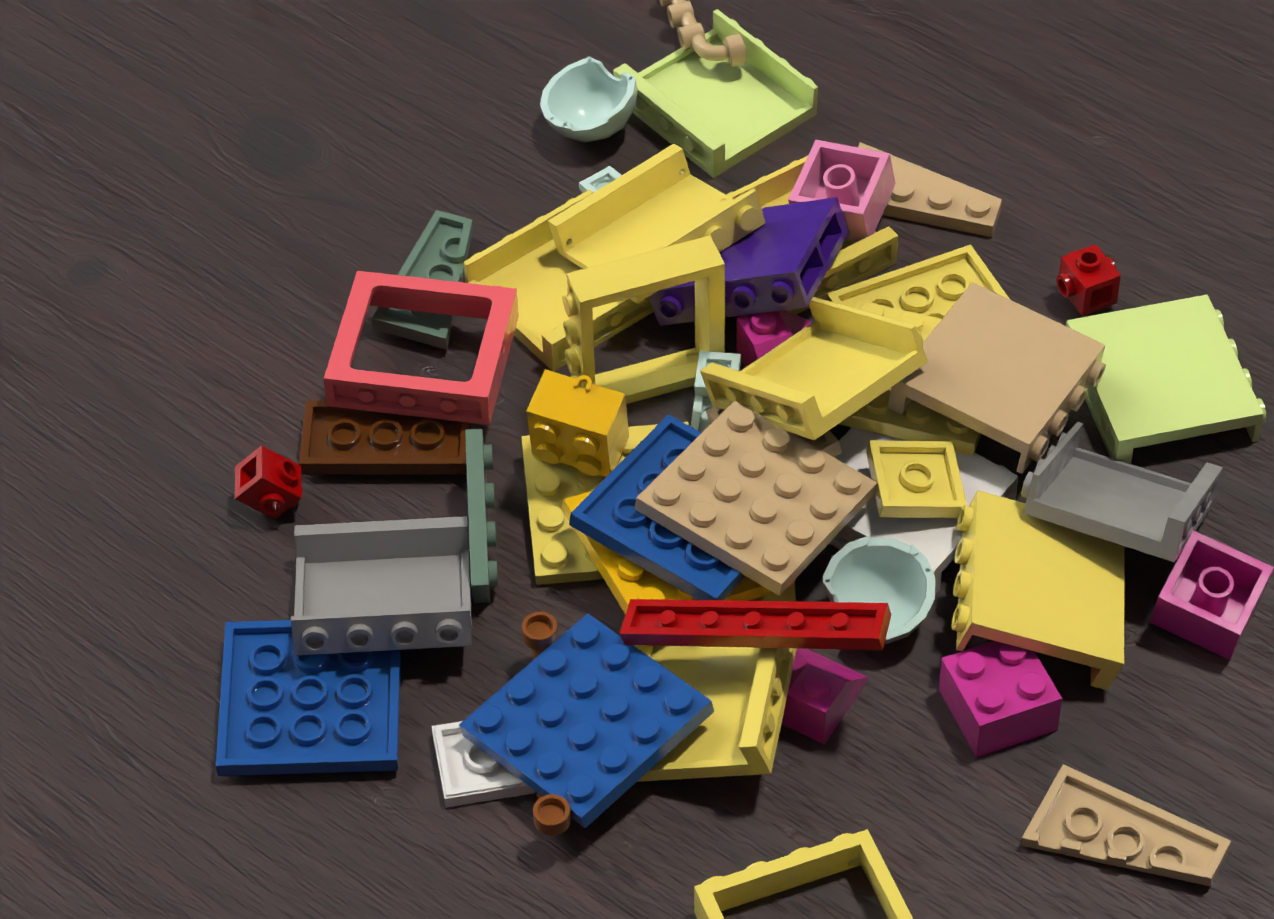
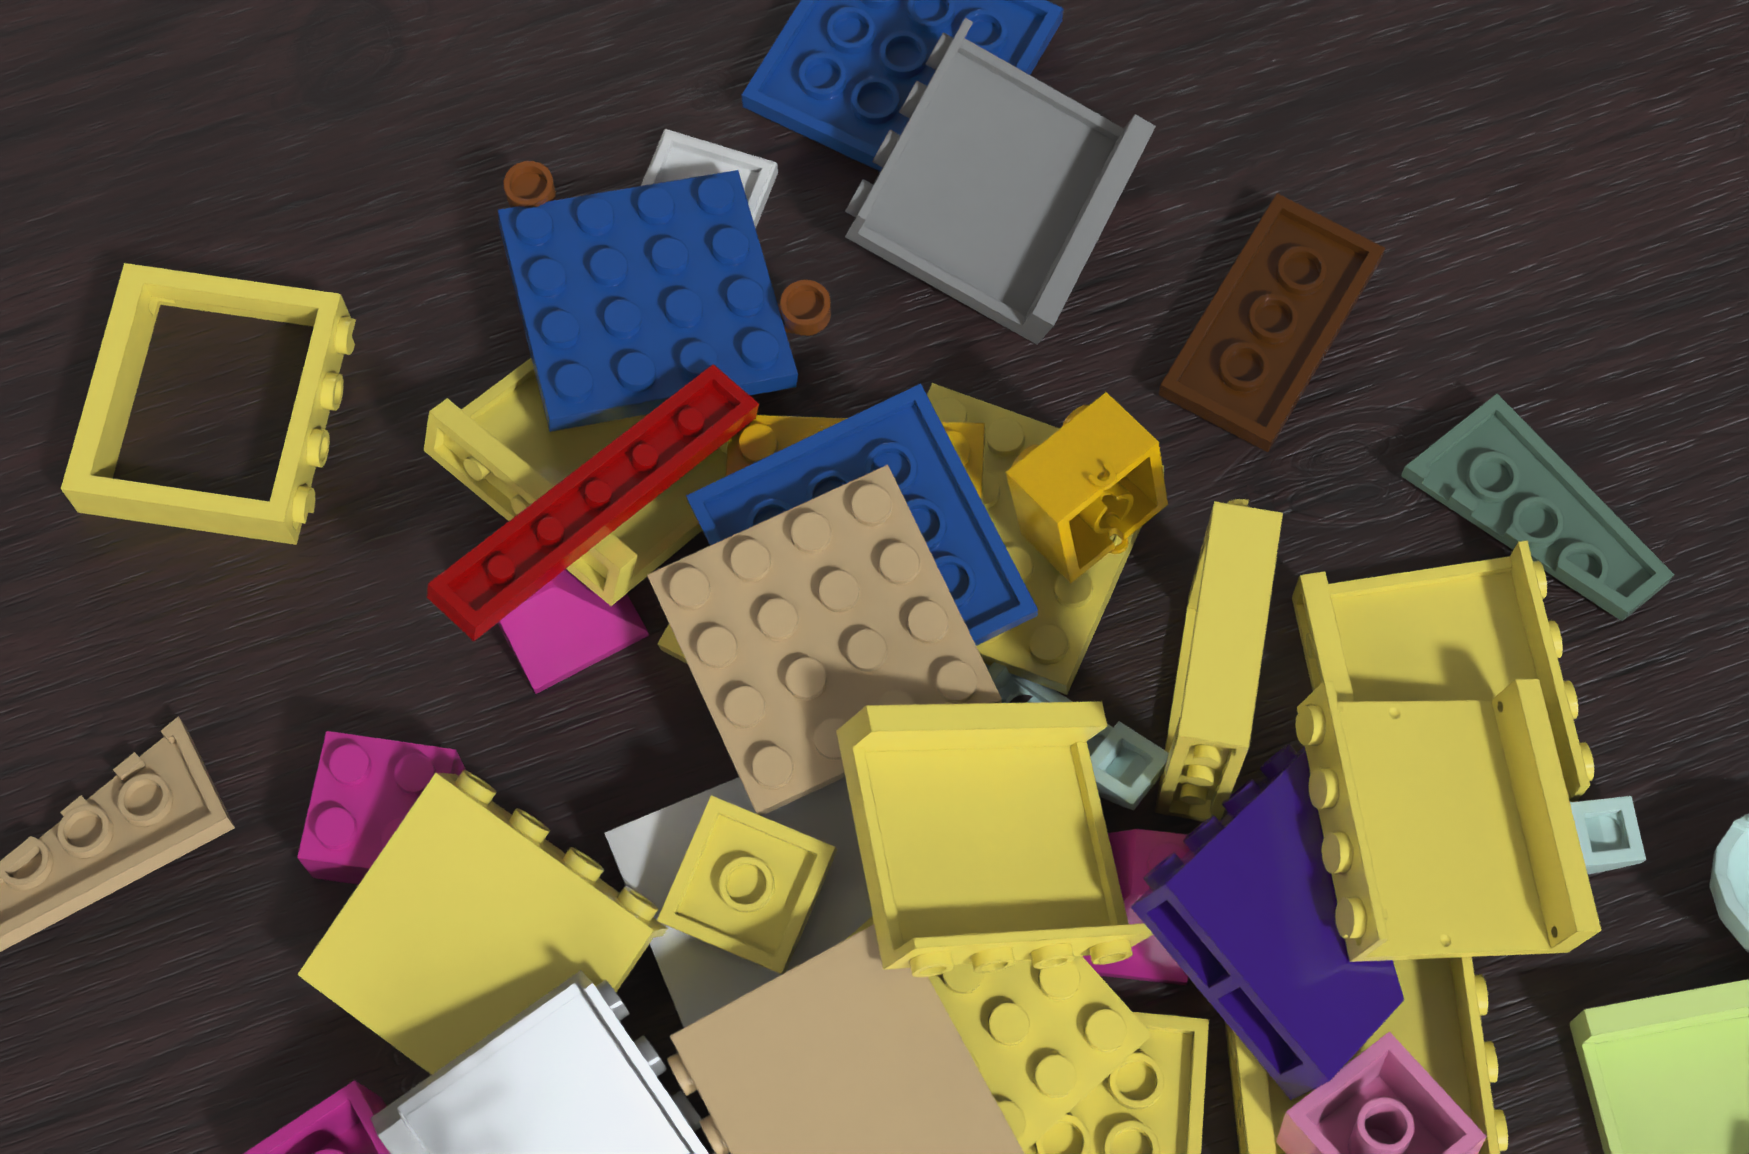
camera: 120 degrees right, 20 degrees up
(268, 482) = (1256, 140): red brick -> none
(414, 395) = (1328, 493): coral piece -> none
(481, 532) = (1059, 349): sand green wing -> none
(883, 573) = (614, 752): light aqua cylinder -> none

